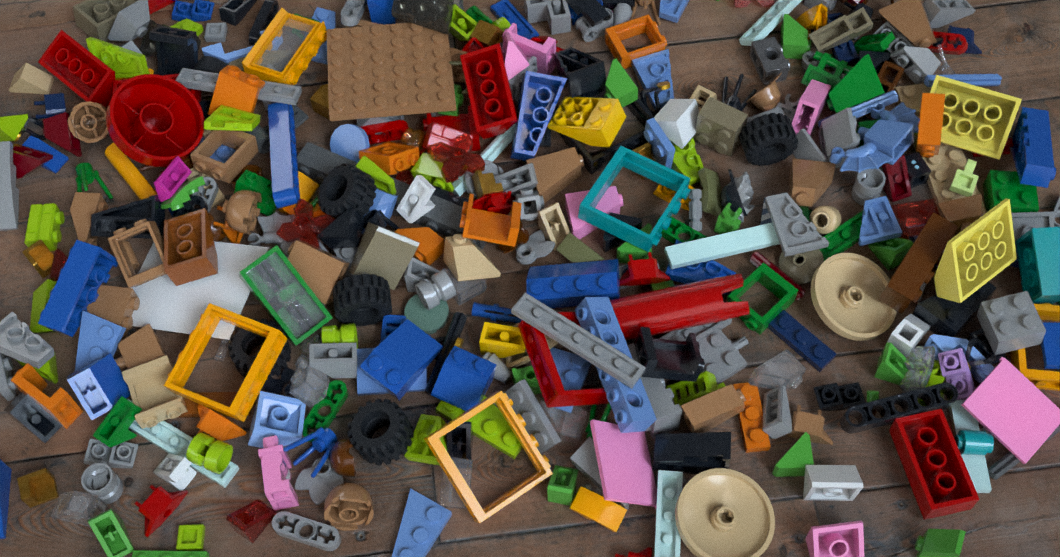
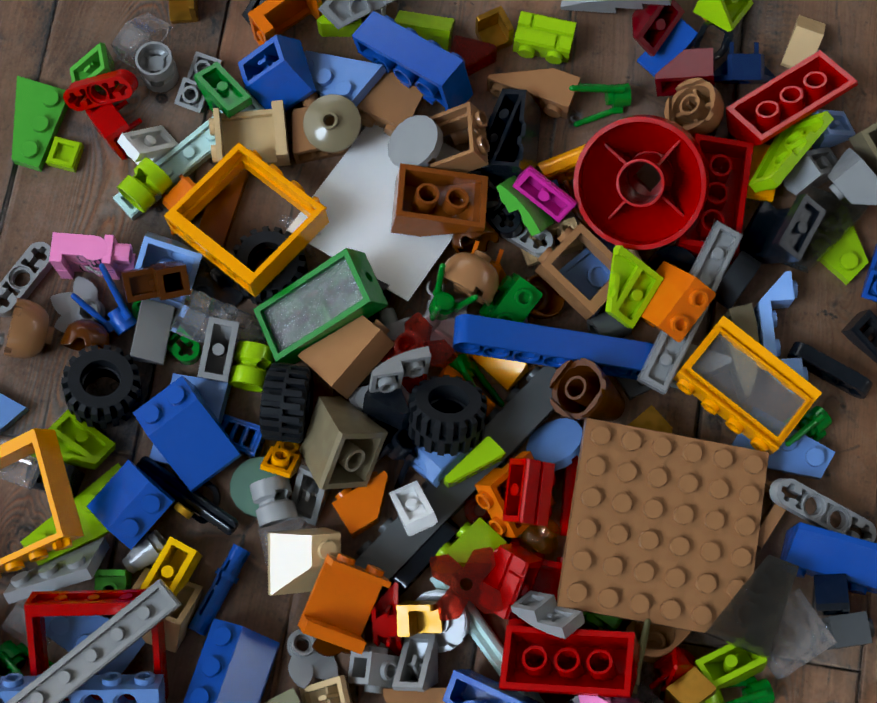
camera: 105 degrees right, 15 degrees up
(136, 343) = (341, 133): none -> dark tan dish
(141, 531) = (93, 99): none -> red beam
(144, 272) = (415, 141): none -> light grey tile
(215, 32) = (833, 300): light grey tile -> none
(251, 519) = (52, 215): clear red slope -> none
(267, 224) = (444, 303): none -> green plant
(286, 405) = (158, 280): none -> reddish brown brick
(302, 121) = (585, 392): none -> reddish brown cone
(323, 218) = (390, 373): none -> light grey slope
(328, 412) = (152, 332): none -> light grey slope
(387, 139) = (529, 492): none -> red brick
(403, 294) = (283, 459): none -> light orange slope
(465, 102) = (542, 613): none -> light grey slope

